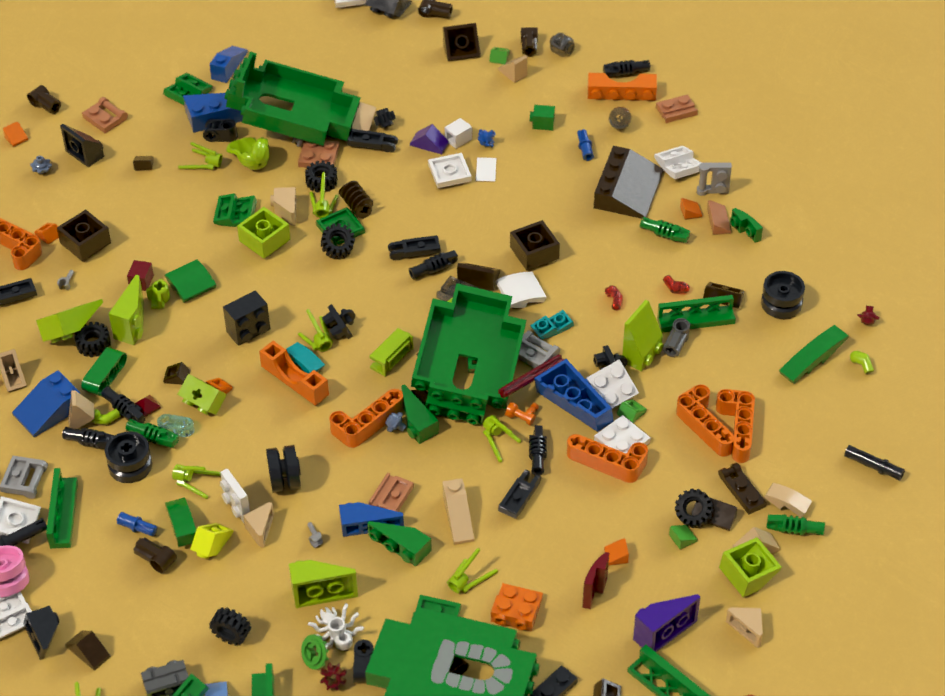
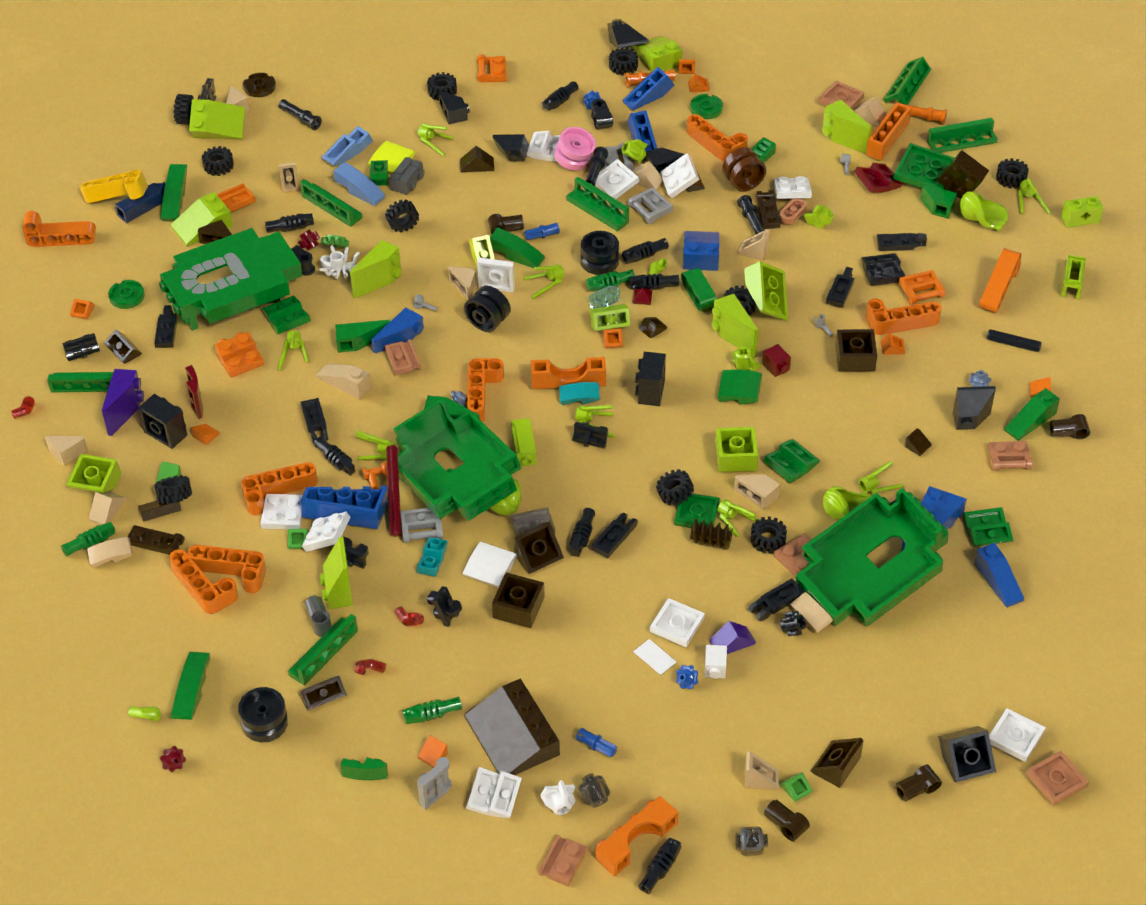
camera: 135 degrees right, 0 degrees up
(47, 120) = (1033, 414): none -> green slope
(80, 410) = (670, 248): tan slope -> none
(543, 117) = (665, 739): green brick -> none
(587, 274) = (445, 606): none -> black hips
(643, 132) = (559, 797): none -> white piece
(648, 572) = (163, 421): none -> black brick
(718, 218) = (400, 762): nougat slope -> none
(878, 464) = (69, 630): black pin -> none

